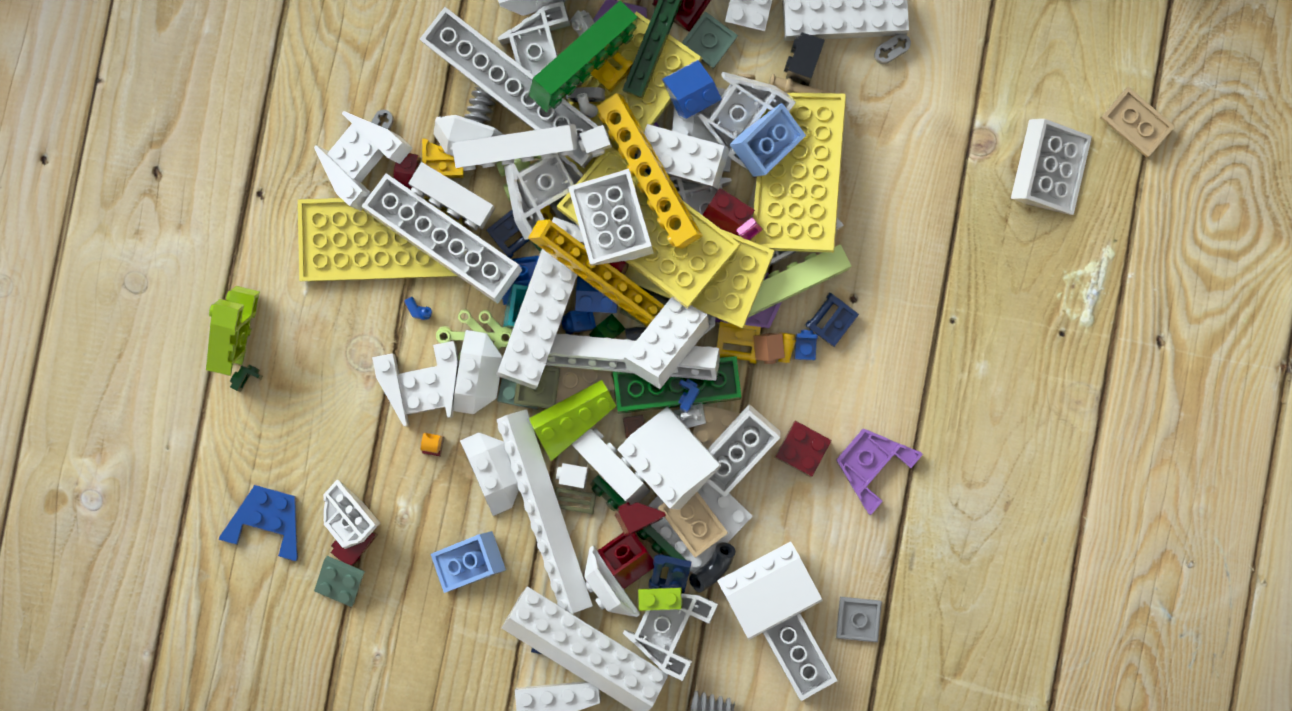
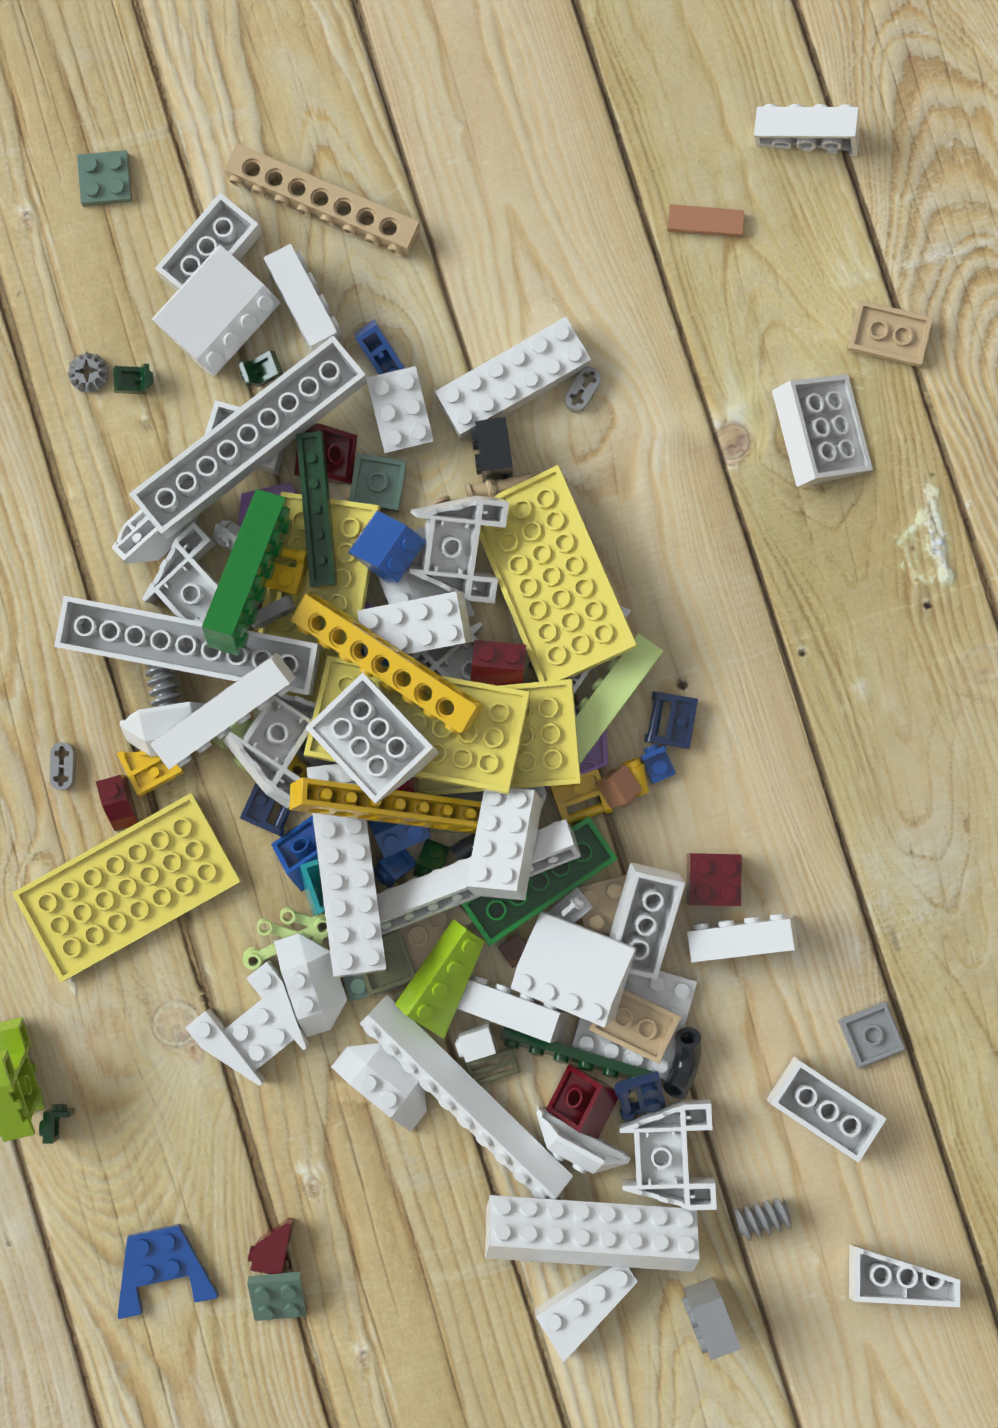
camera: 30 degrees left, 0 degrees up
(347, 516) = (249, 1219): white wedge -> none
(356, 156) = (52, 813): white wedge -> none
(418, 311) = (211, 947): blue arm -> none
(432, 444) = (301, 1087): light orange leg -> none
(442, 238) = (194, 855): white brick -> none
(452, 196) = (176, 802): white brick -> none
(468, 561) = (410, 1198): light blue slope -> none
(585, 107) = (279, 627): white arm -> none
(595, 141) = (309, 660): white brick -> none
(637, 517) = (571, 1053): dark red slope -> none
(660, 599) = (645, 1132): lime brick -> none
(688, 399) = (559, 893): blue bracket -> none
(749, 229) = (531, 669): dark pink tile -> none
(767, 141) = (500, 560): light blue slope -> none
(770, 590) = (760, 1057): white slope -> none
(802, 501) = (742, 938): none -> white wedge
(866, 458) = (788, 852): medium lavender wing -> none

